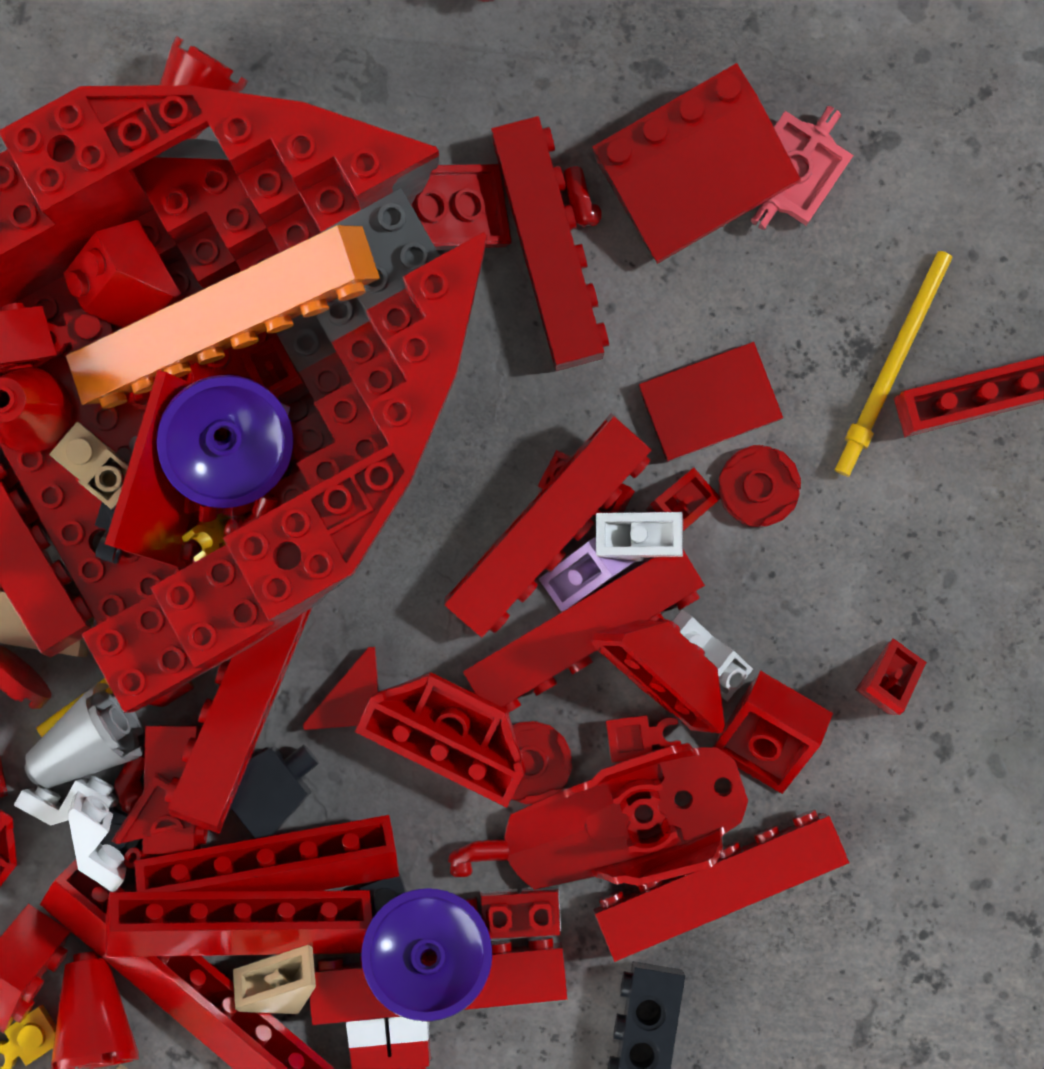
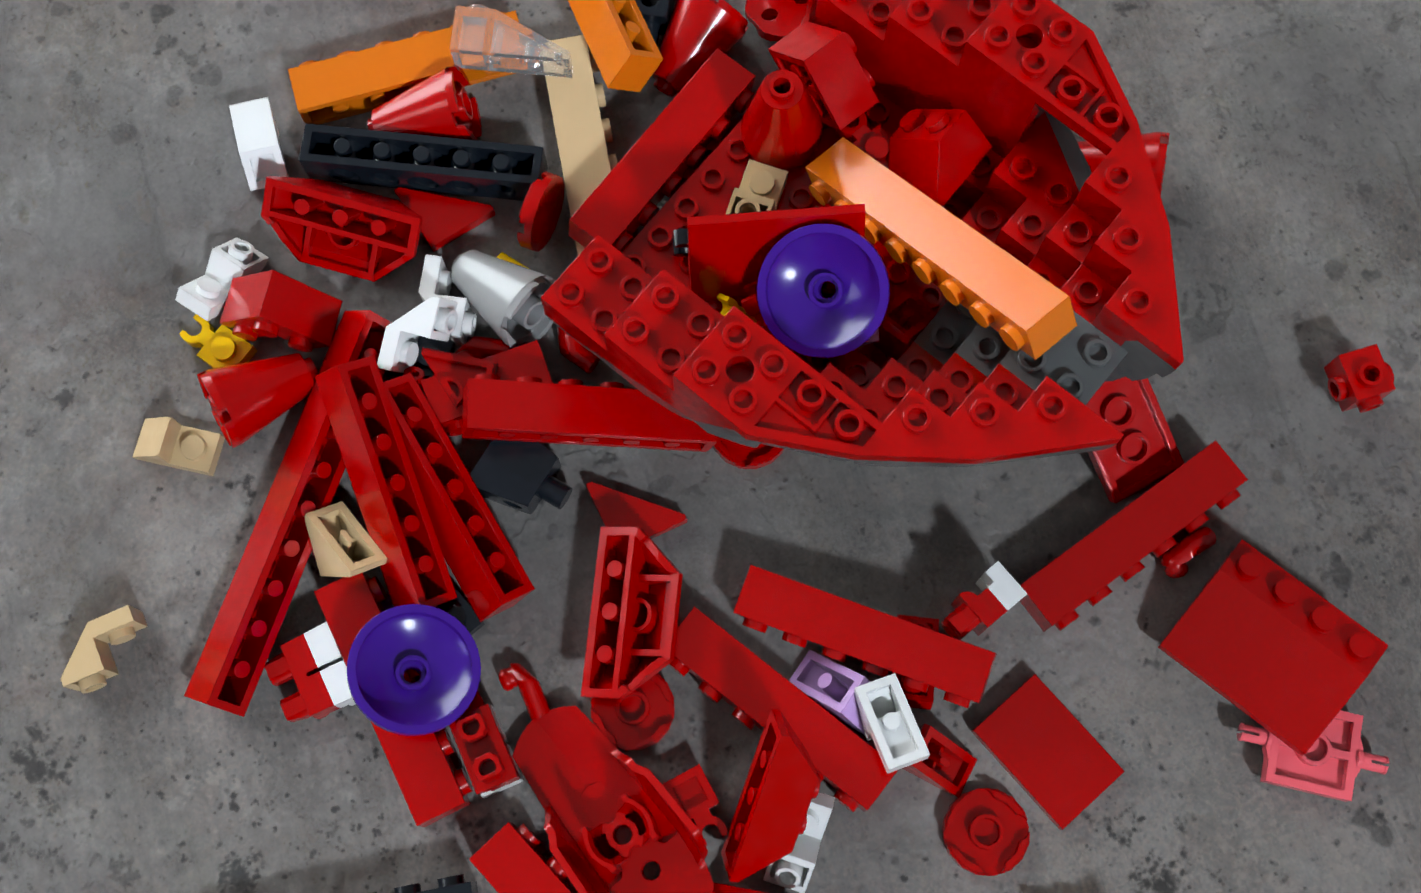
camera: 70 degrees right, 10 degrees down
(565, 405) = (979, 612): none -> red hips

